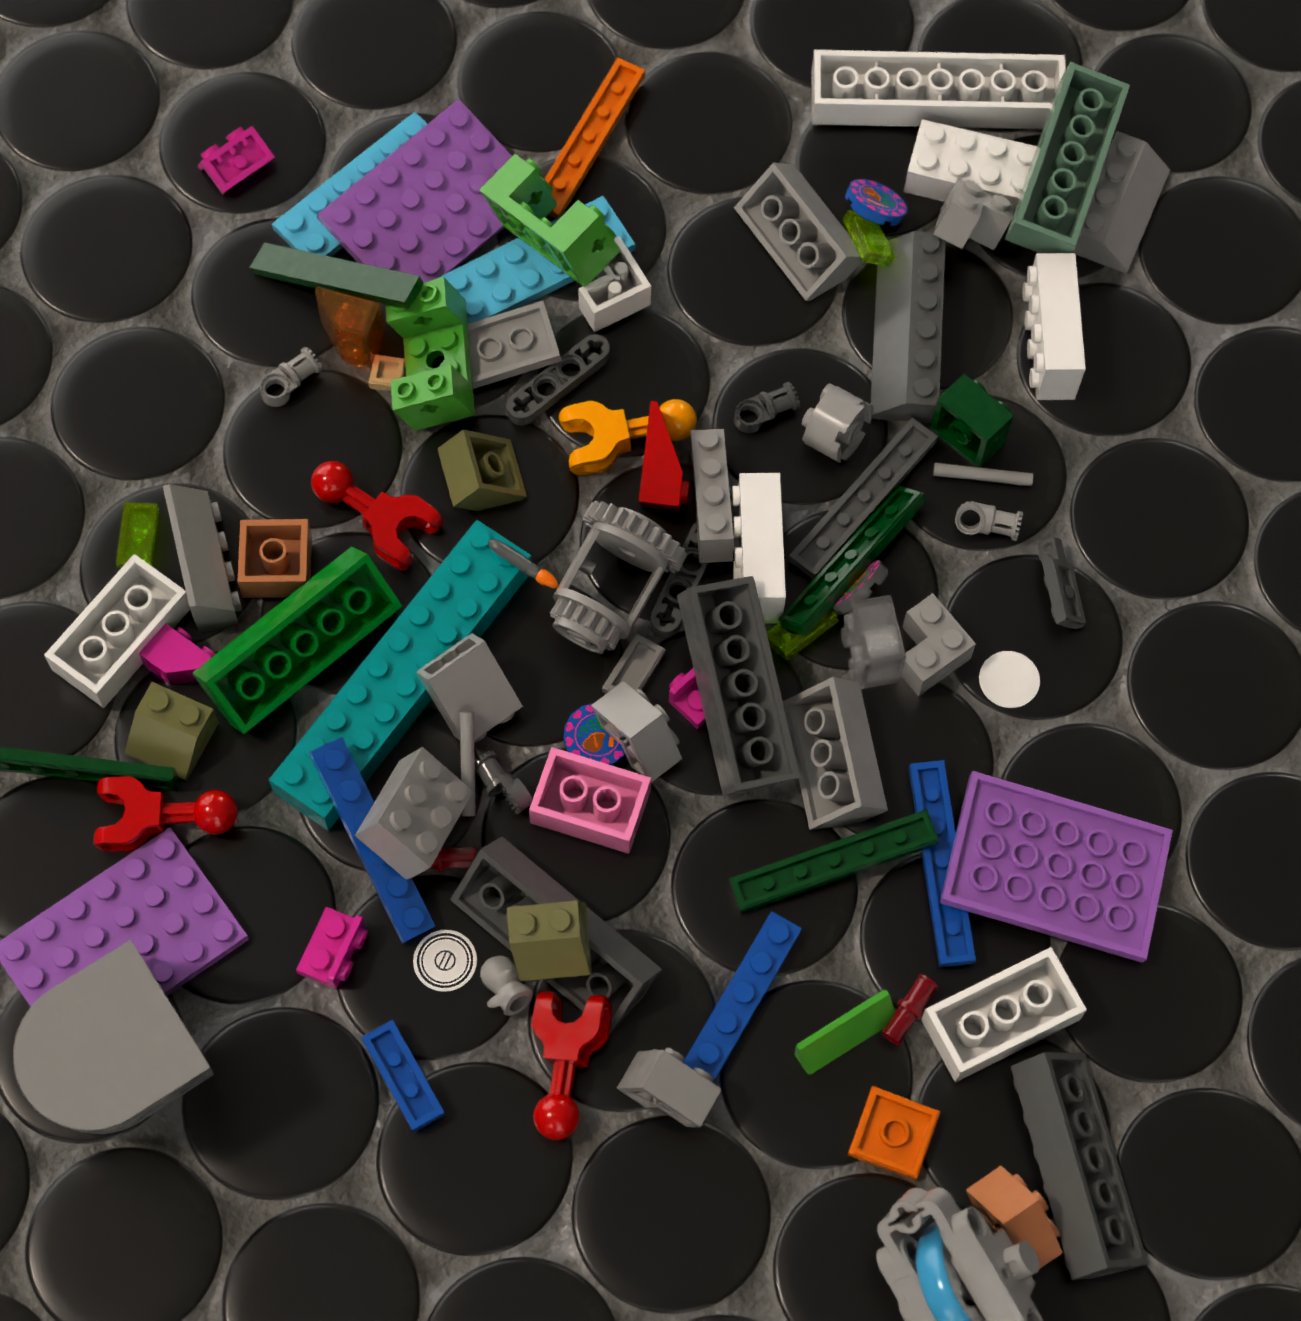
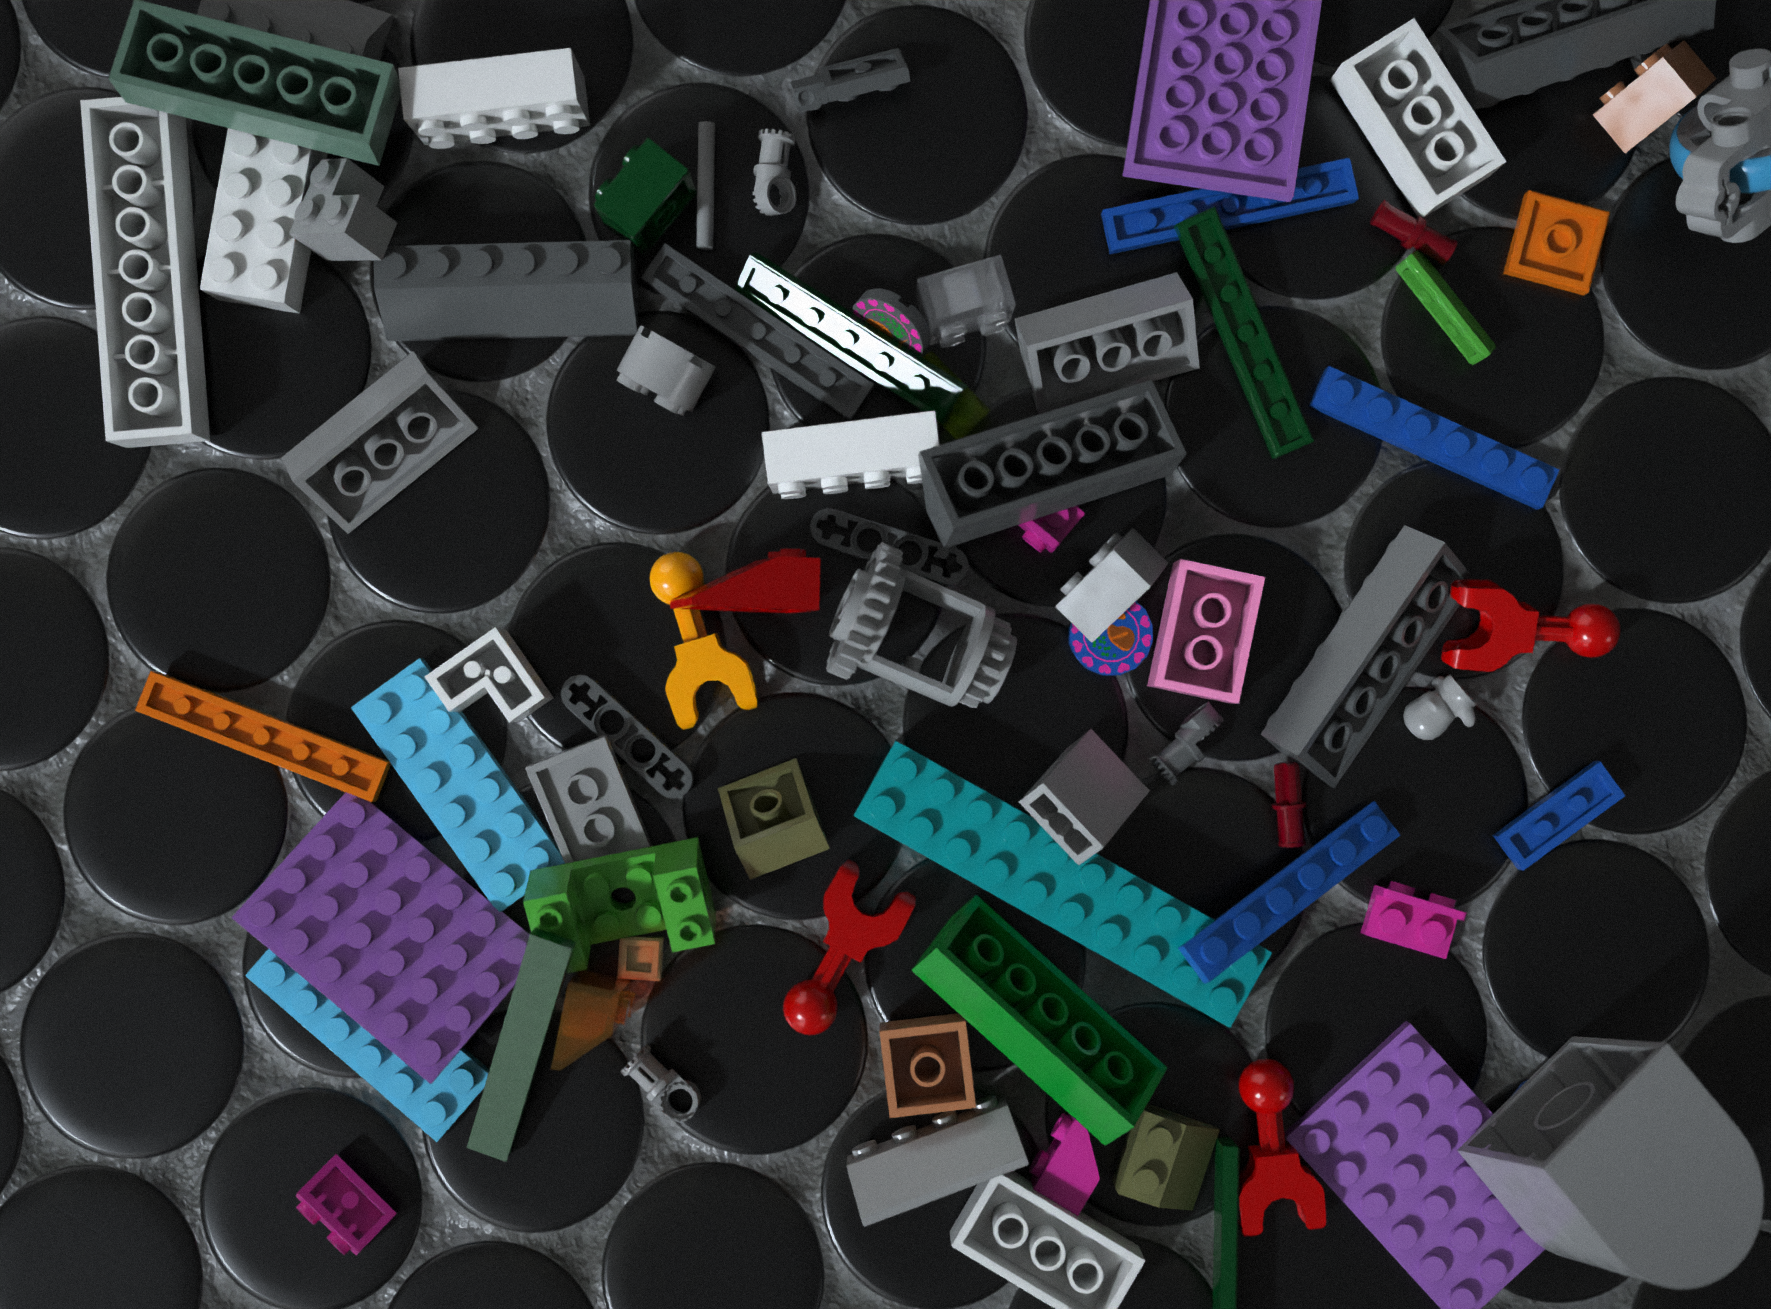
camera: 95 degrees left, 20 degrees up
(137, 532) = (907, 1244): clear neon green plate -> none
(414, 813) = (1260, 842): light grey brick -> none
(445, 960) = (1407, 784): white sticker -> none
(468, 758) = (1174, 787): light grey bar -> none
(522, 563) = (930, 722): dark grey piece -> none
(550, 940) = (1403, 659): olive slope -> none
(575, 244) = (383, 814): bright green plate -> none
(636, 664) = (1018, 598): light grey tile -> none
(666, 1083) = (1554, 504): light grey brick -> none
(712, 496) = (783, 520): light grey arch -> none
(766, 407) = (643, 466): dark grey connector -> none
(868, 239) = (384, 350): clear neon green plate -> none
(876, 202) = (328, 344): blue tile -> none
(939, 648) = (953, 220): light grey brick -> none
(1009, 679) = (977, 140): white sticker -> none

